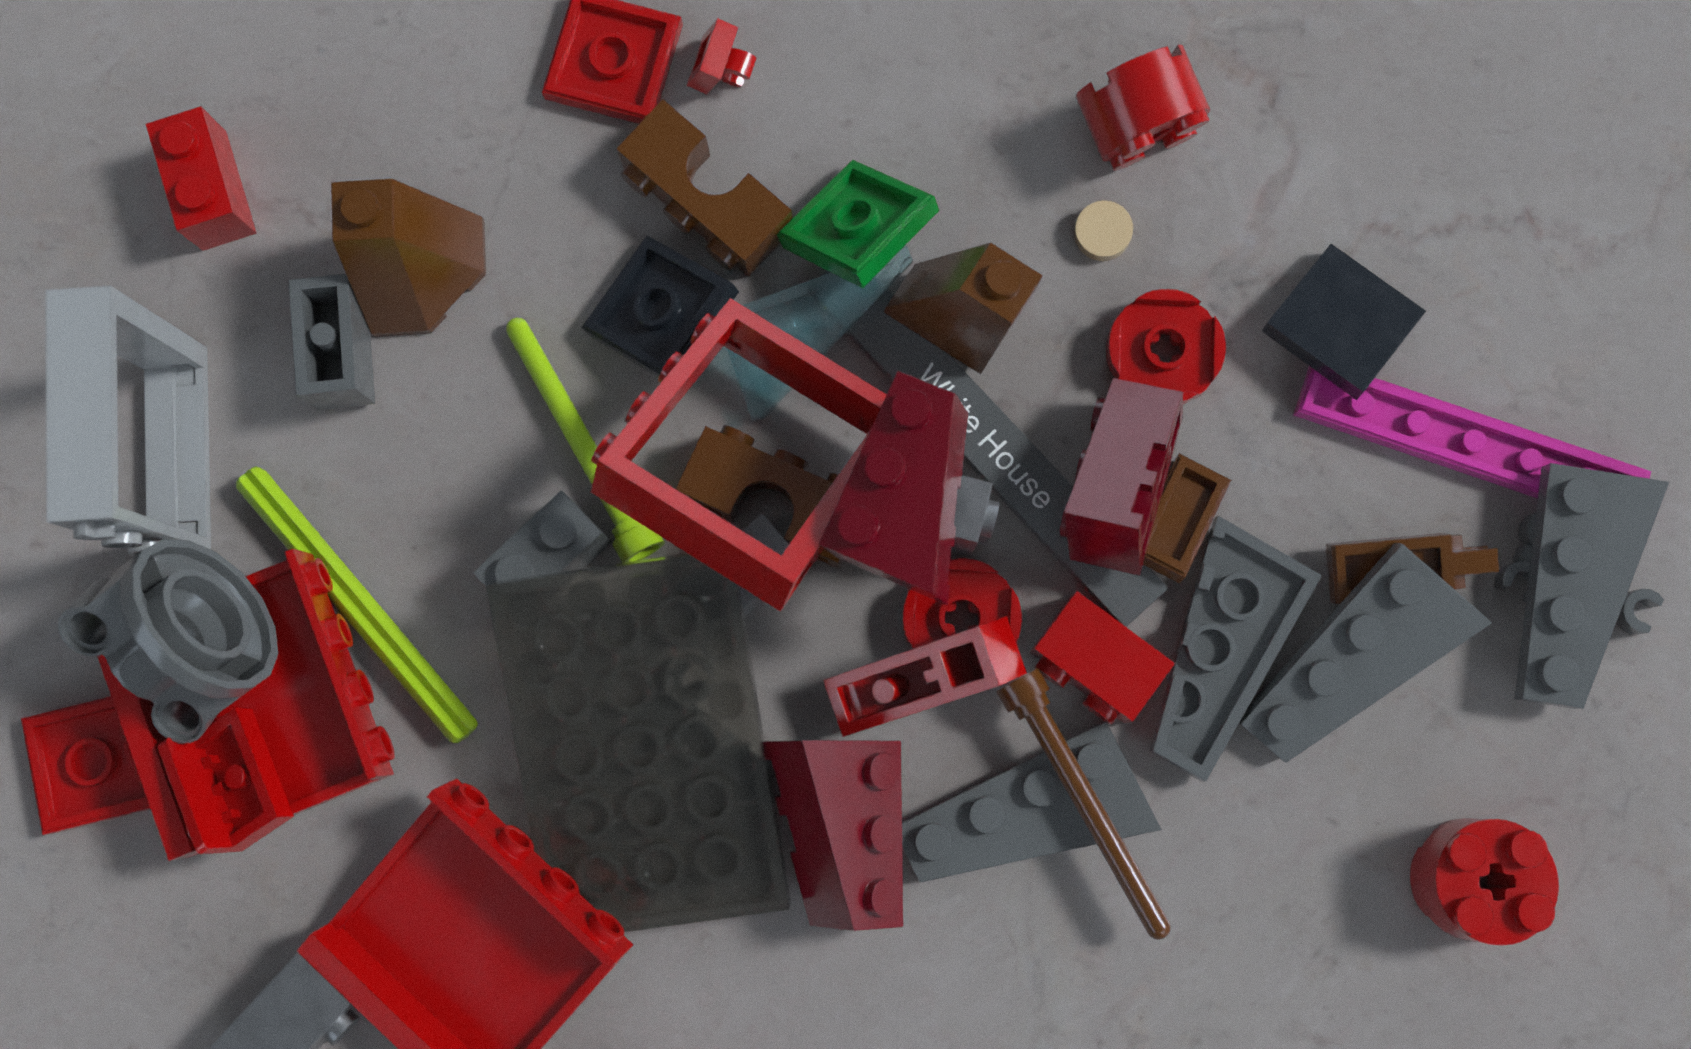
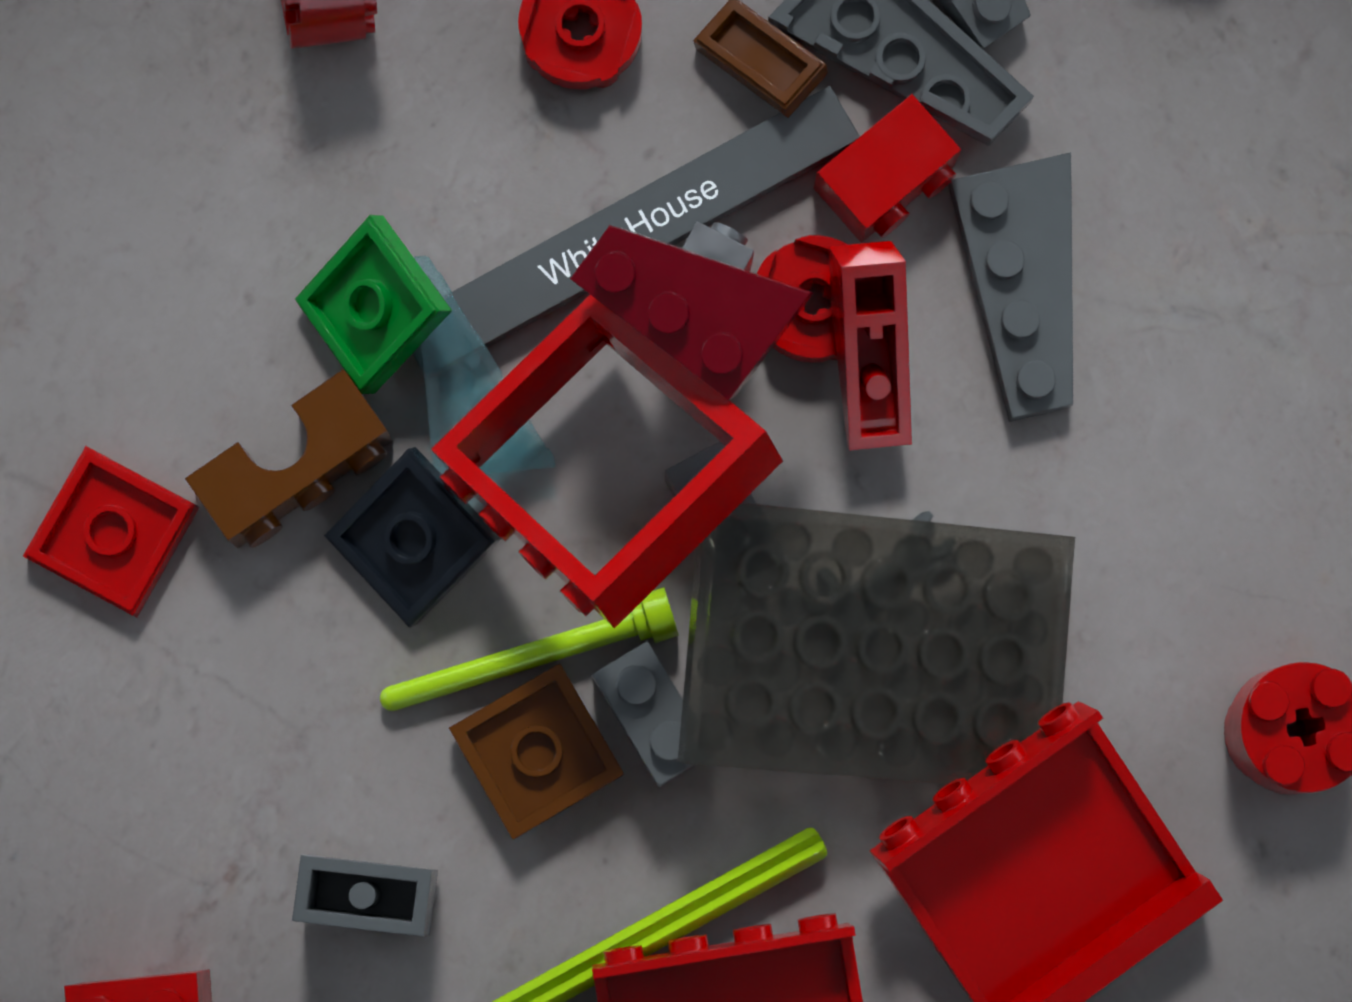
camera: 85 degrees left, 0 degrees up
(405, 253) = (291, 791): reddish brown slope -> none
(493, 463) = (536, 751): none -> reddish brown plate
(719, 61) = (147, 416): red tile -> none
(729, 470) = (603, 501): reddish brown arch -> none
(844, 827) = (1006, 459): dark red wedge -> none
(965, 301) = (489, 208): reddish brown slope -> none
(1029, 701) = (920, 246): reddish brown piece -> none
(1103, 230) = (437, 59): tan tile -> none
(1122, 476) = (709, 97): wedge -> none

